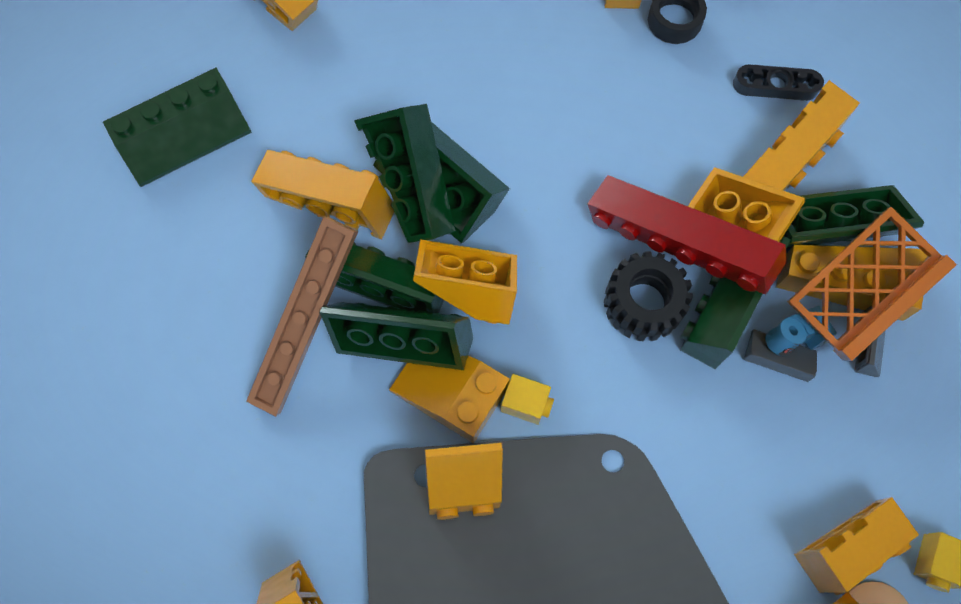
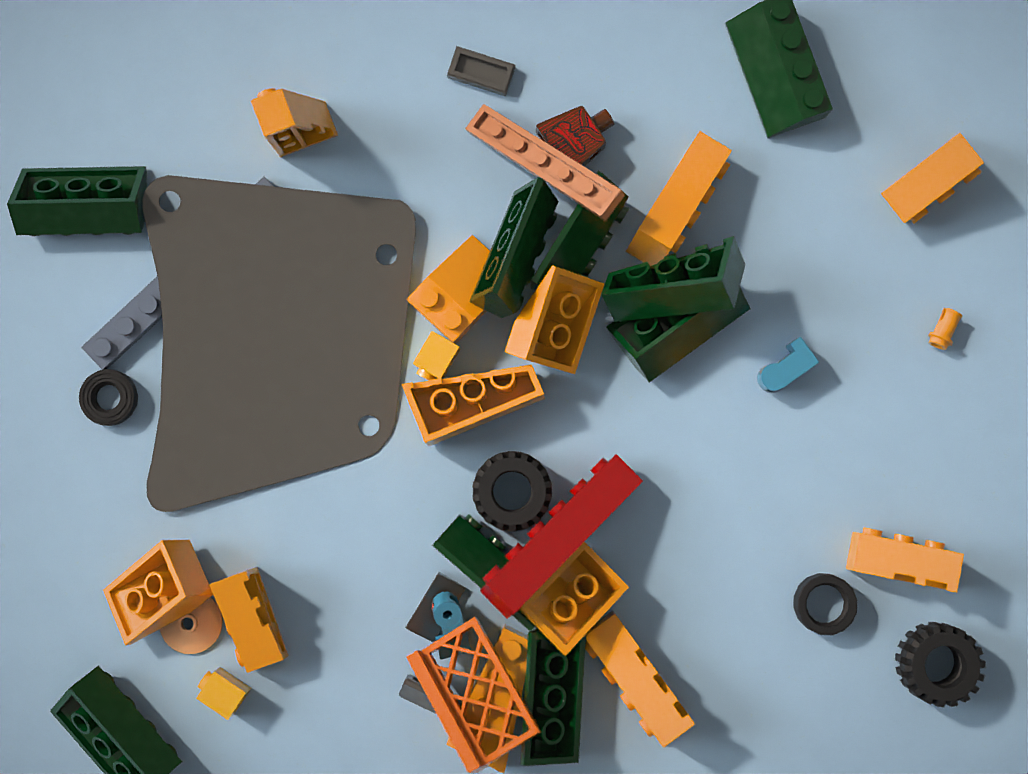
camera: 105 degrees right, 15 degrees up
(210, 413) = (481, 71): none -> dark grey tile
(265, 298) = (576, 133): none -> reddish brown torso
(464, 480) = (365, 281): light orange slope -> none
(469, 75) = (780, 374): none -> dark azure leg
(569, 358) = (470, 400): none -> light orange wedge
(790, 76) = (711, 711): black beam -> none

